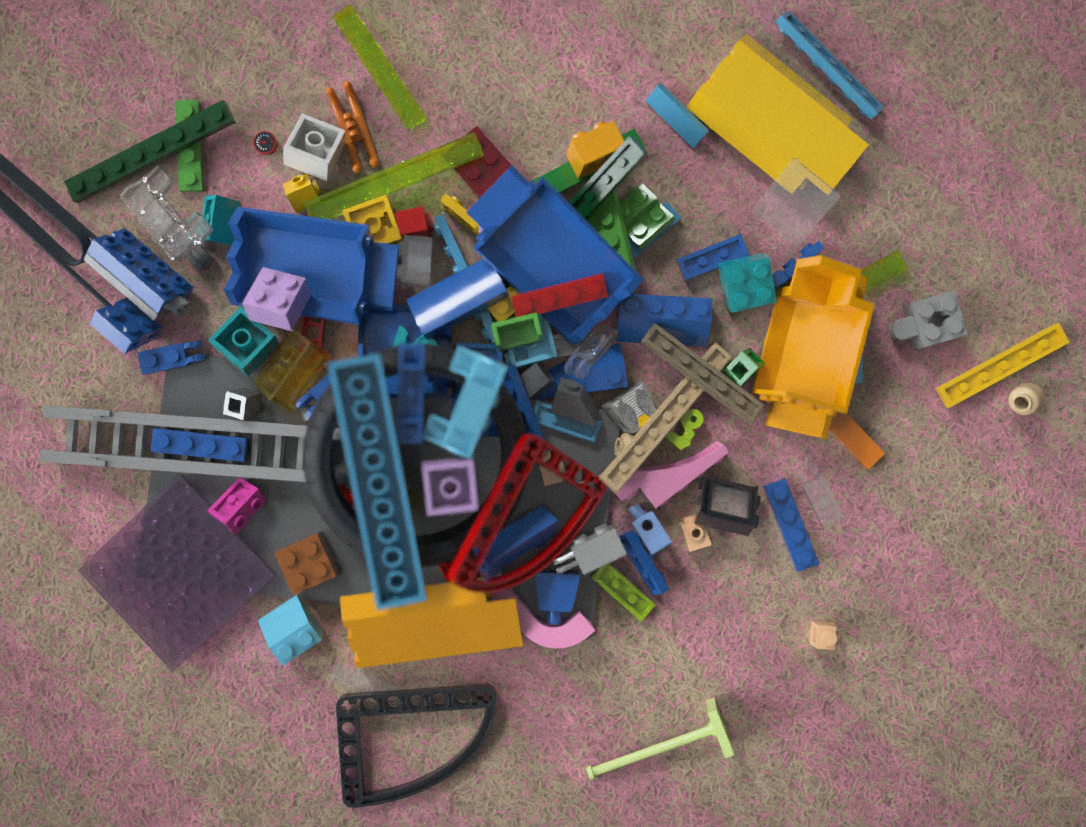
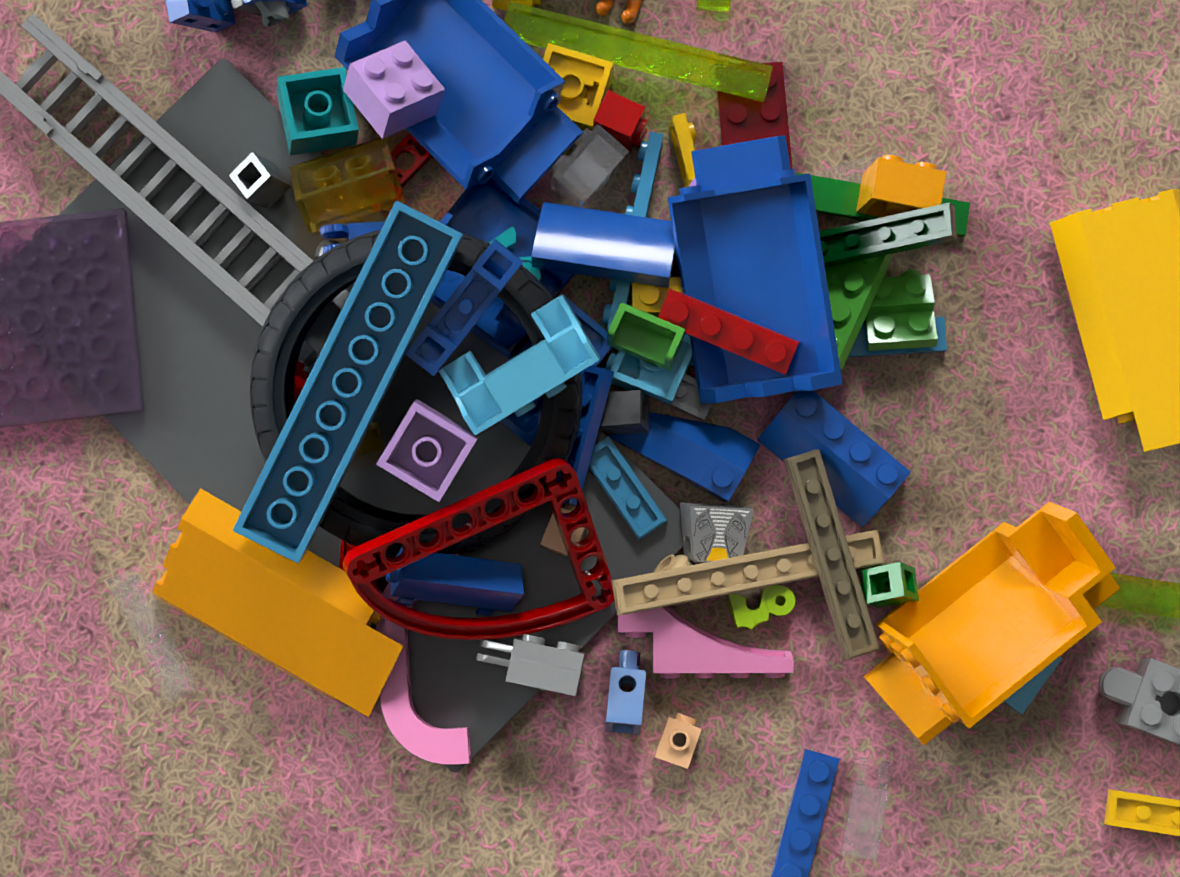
camera: 45 degrees right, 5 degrees down
(168, 357) = (216, 65): blue hinge -> none
(199, 444) = (173, 191): blue plate -> none
(237, 505) = (163, 295): dark pink bracket -> none
(290, 629) = (110, 488): medium azure slope -> none
(307, 563) = (191, 424): dark orange brick -> none
(427, 781) = (174, 685): black beam -> none
(556, 593) = (456, 684): blue torso -> none
(574, 402) = (651, 472): dark grey slope -> none
(591, 350) = (717, 426): clear hinge -> none
(623, 591) = (539, 745): lime tile -> none
(643, 562) = (589, 729): blue plate -> none
(677, 115) = (1032, 225): dark azure tile -> none
(707, 258) = (950, 425): blue plate -> none
(727, 505) = (742, 736): black window -> none
(747, 282) = (968, 485): teal brick -> none
(795, 203) = (1098, 433): clear piece -> none
(809, 250) = (1013, 510): blue hinge -> none
(855, 440) = (961, 775): orange tile -> none

